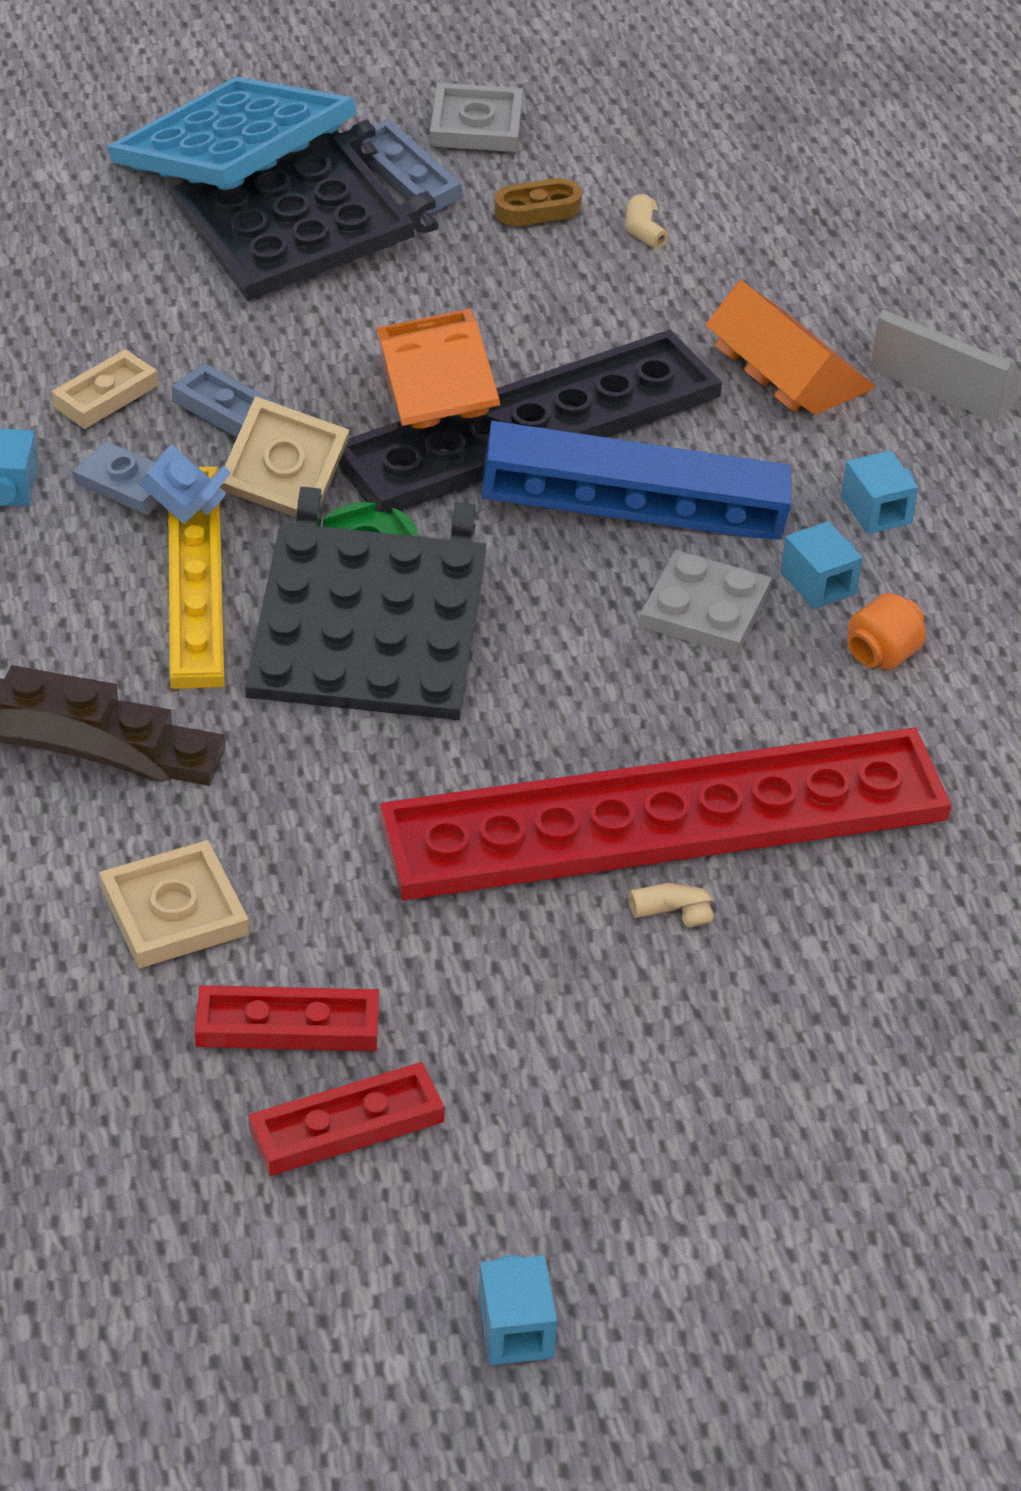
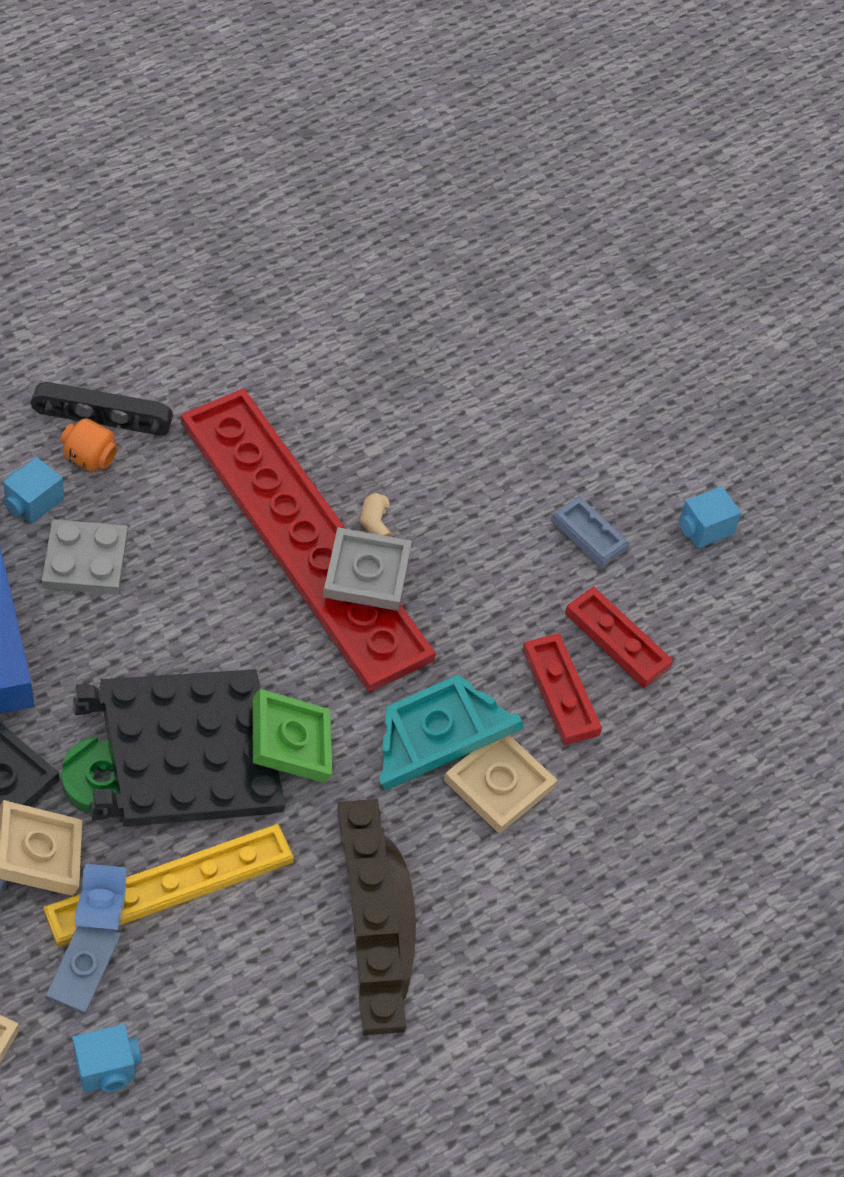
camera: 115 degrees left, 10 degrees up
(279, 856) = (439, 728): none -> teal wing
(332, 701) = (292, 736): none -> bright green plate
(556, 1151) = (590, 532): none -> sand blue plate
(560, 832) = (367, 569): none -> light grey plate
(948, 659) = (141, 416): none -> black beam

